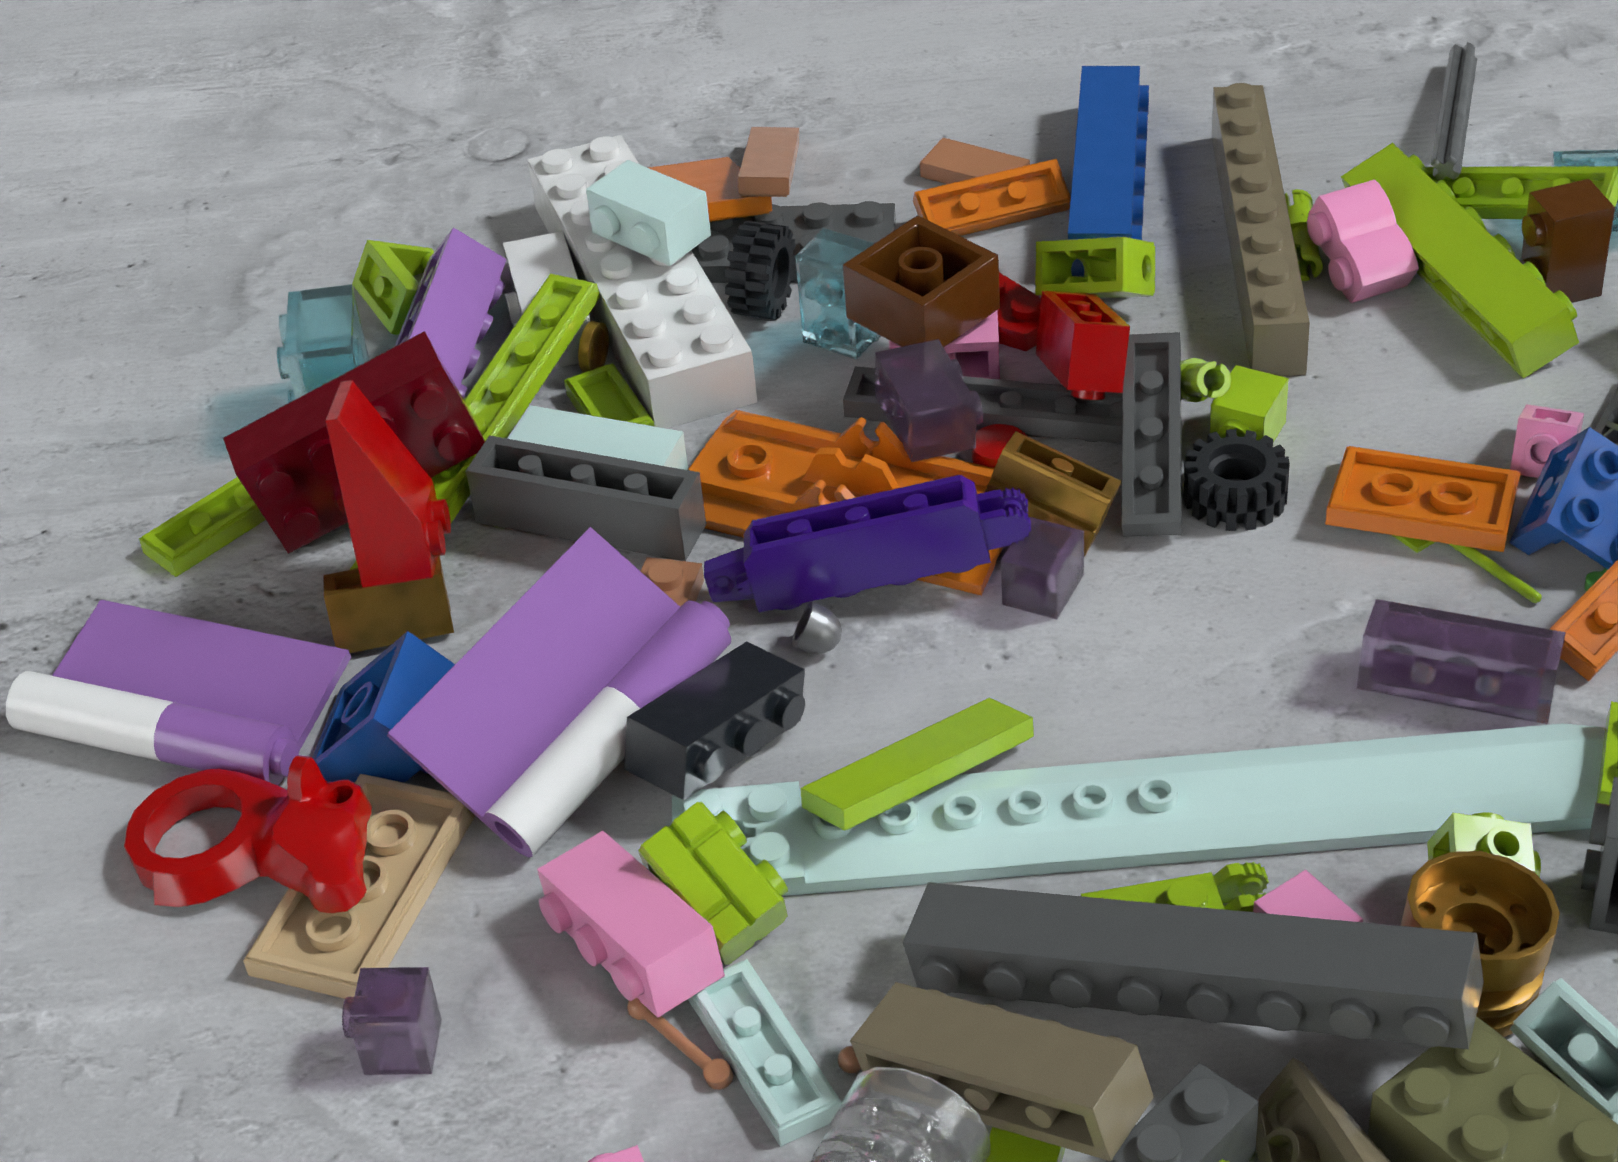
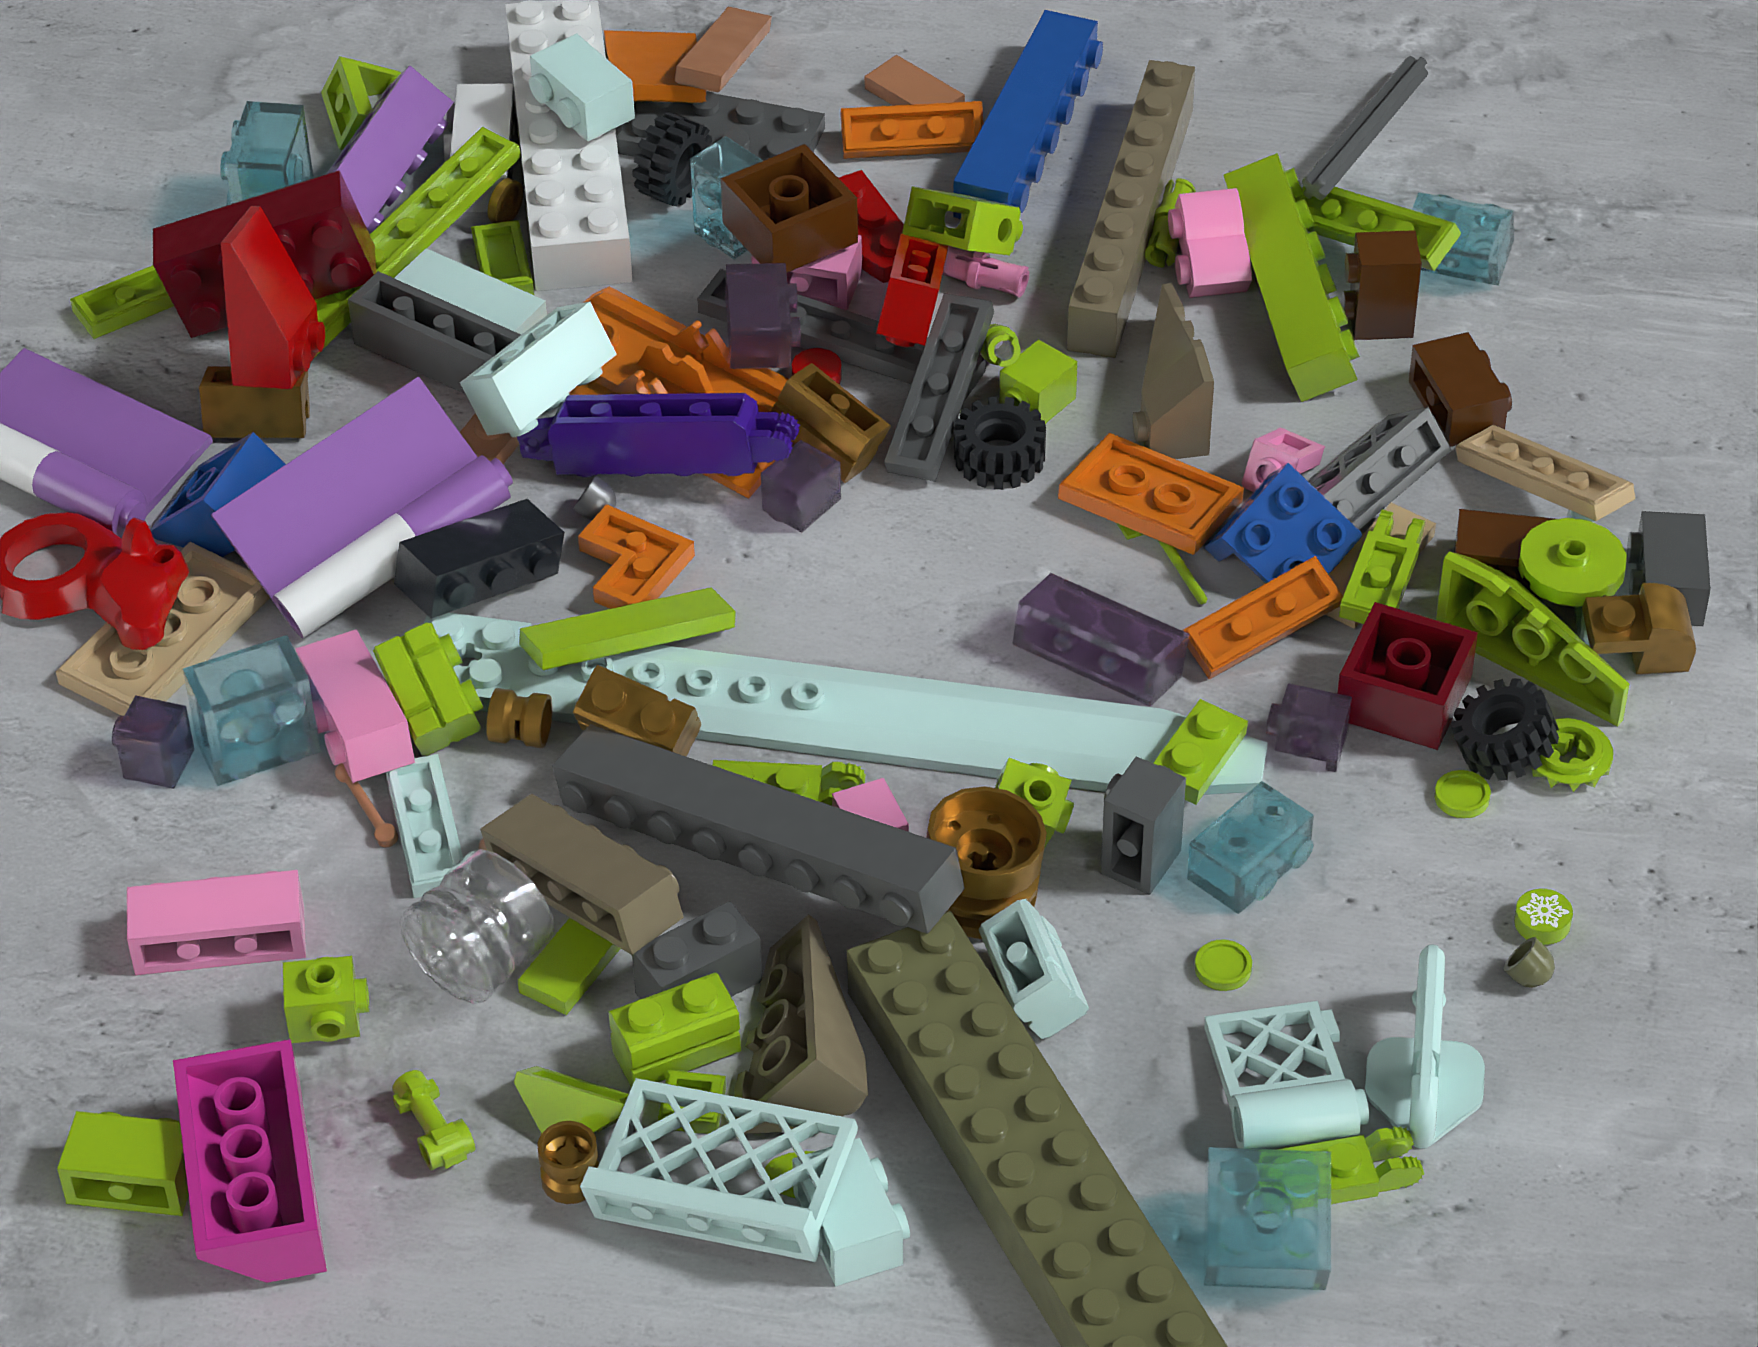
camera: 10 degrees right, 5 degrees up
(509, 955) = (252, 710): none -> clear light blue brick
(711, 500) = (539, 370): none -> light aqua brick
(831, 894) = (519, 718): none -> pearl gold wheel
(895, 676) = (641, 557): none -> orange plate
(976, 854) = (636, 712): none -> pearl gold brick
(1147, 315) = (981, 270): none -> bright pink pin
(1401, 375) = (1175, 386): none -> dark tan wedge

